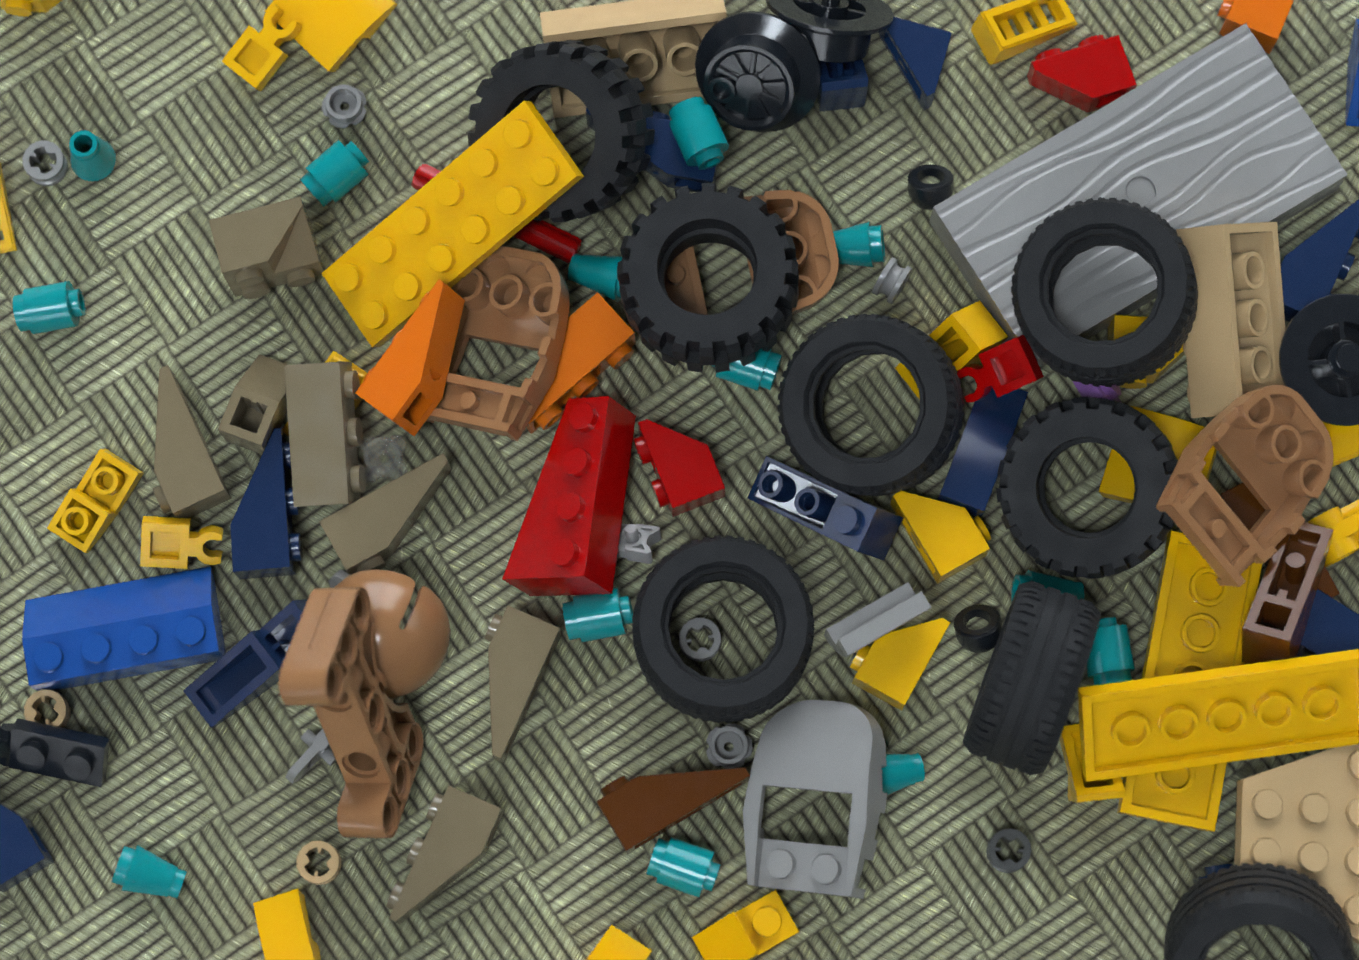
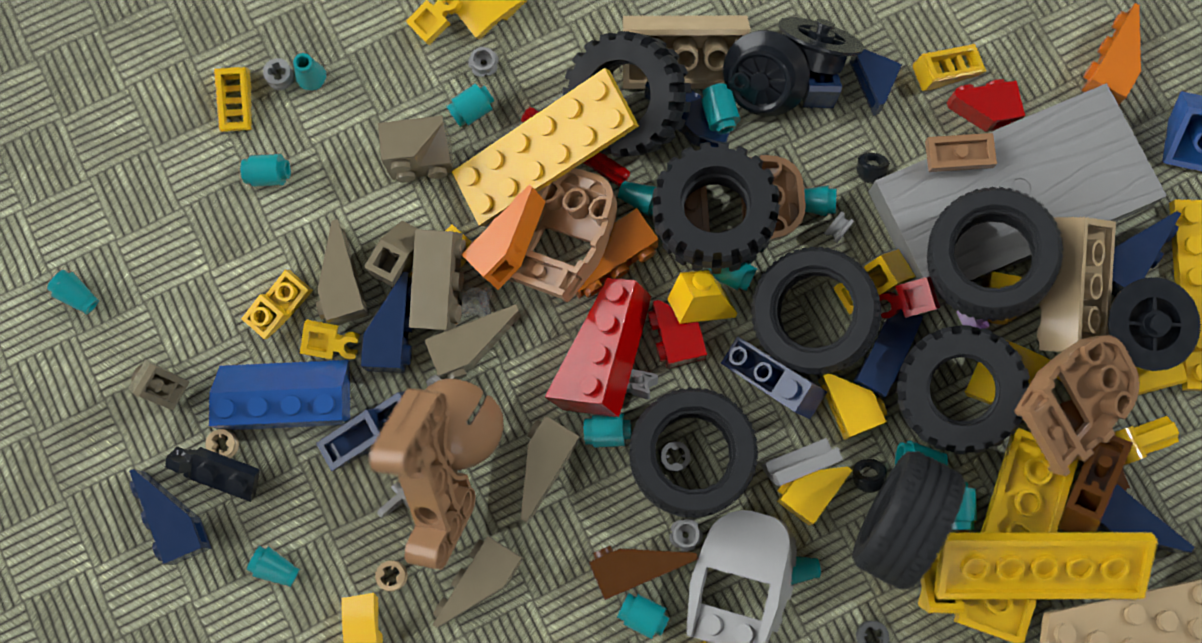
camera: 10 degrees right, 0 degrees up
(705, 409) = (700, 298): none -> yellow slope
(1047, 151) = (960, 152): none -> medium nougat plate

